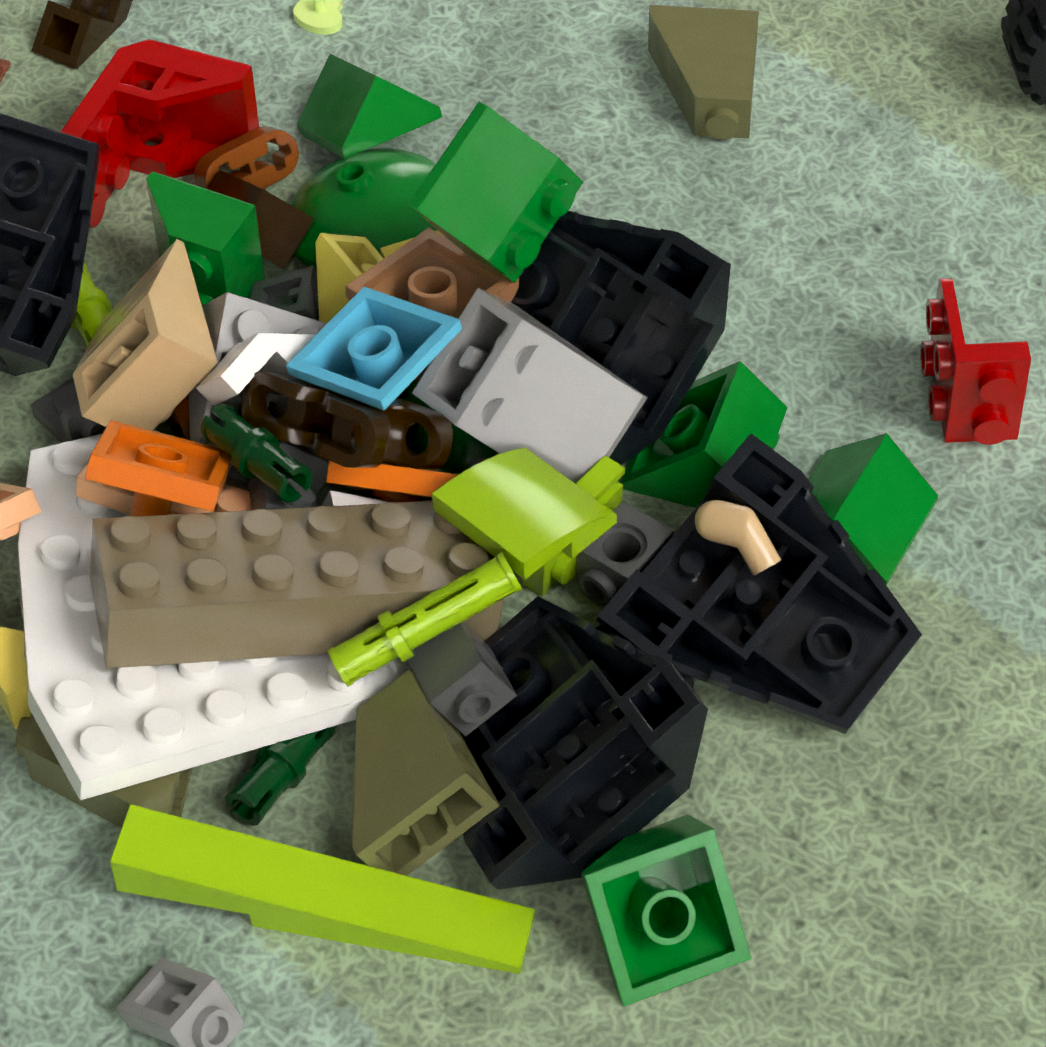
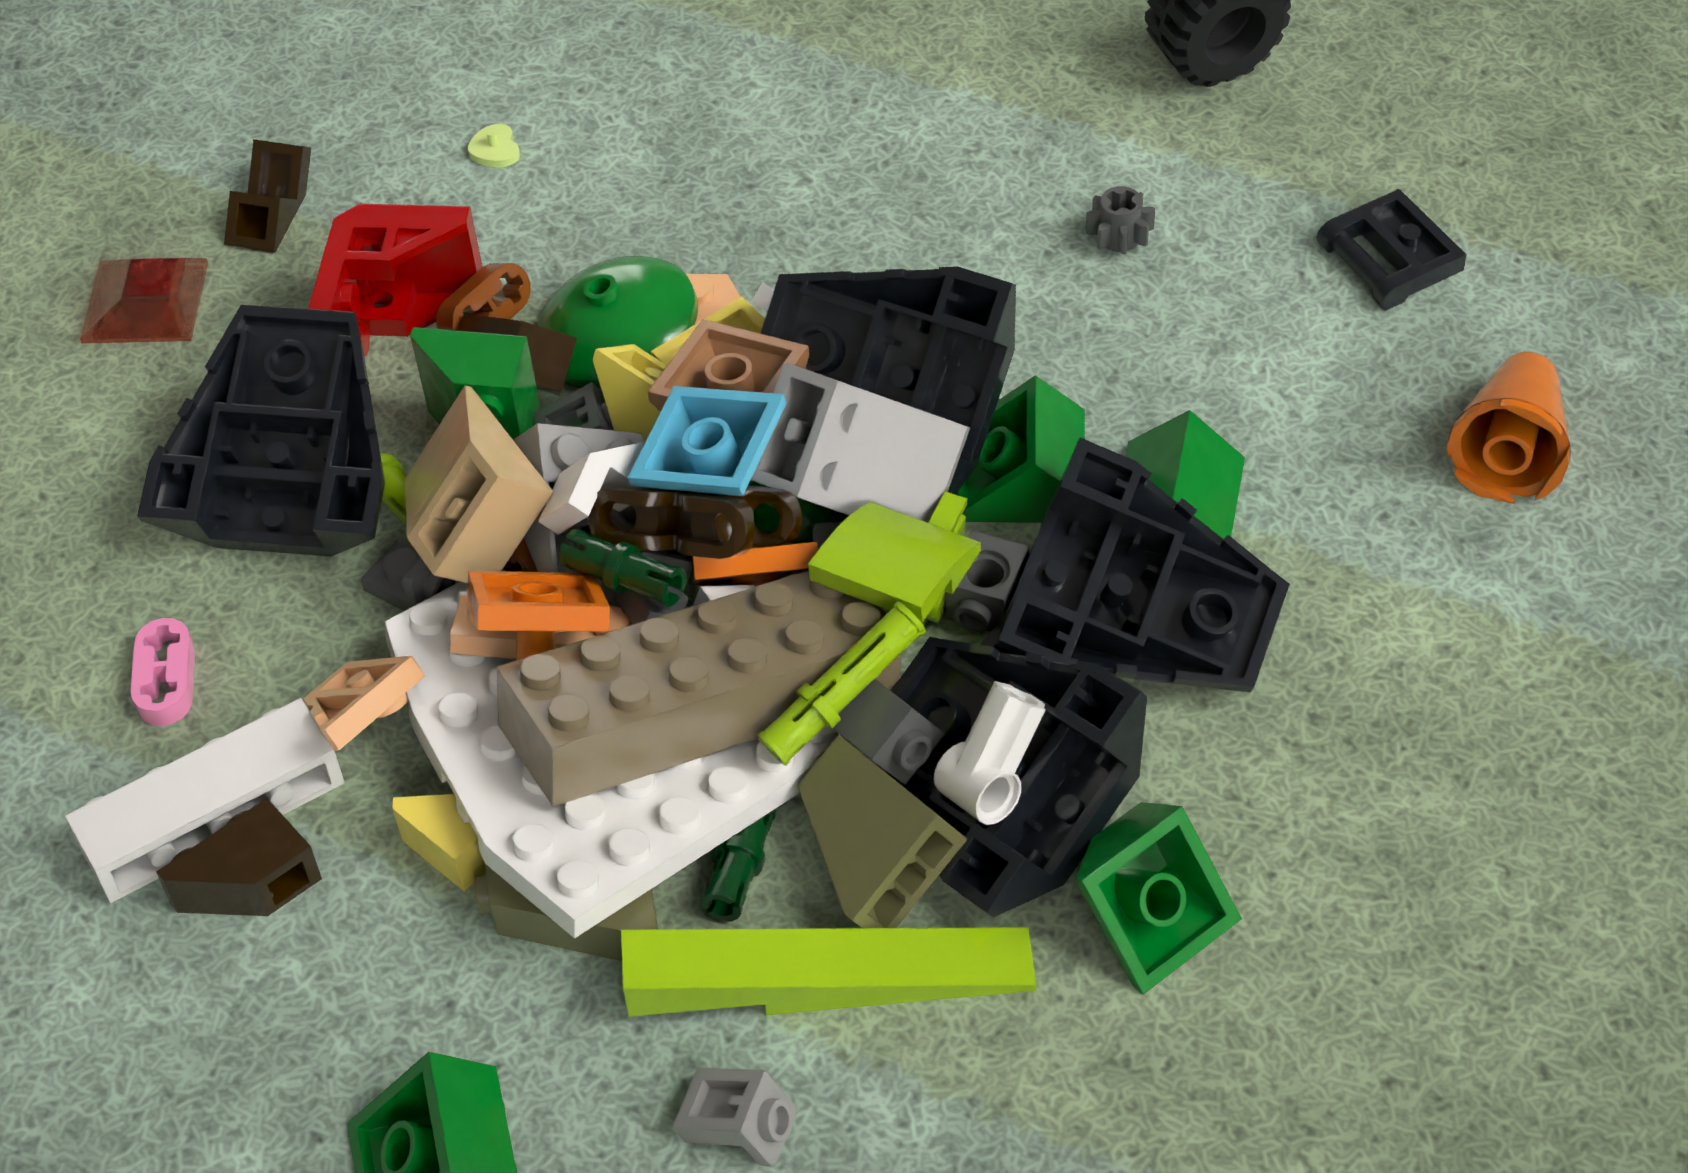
camera: 15 degrees left, 0 degrees up
(359, 110) = (575, 227): green slope -> none
(496, 193) = (774, 269): green slope -> none
(533, 739) = (982, 770): none -> white piece
(707, 65) = (885, 115): olive slope -> none
(738, 528) = (1096, 527): tan arm -> none
(902, 224) = (1120, 219): none -> dark grey gear
(976, 385) = (1244, 351): red bracket -> none

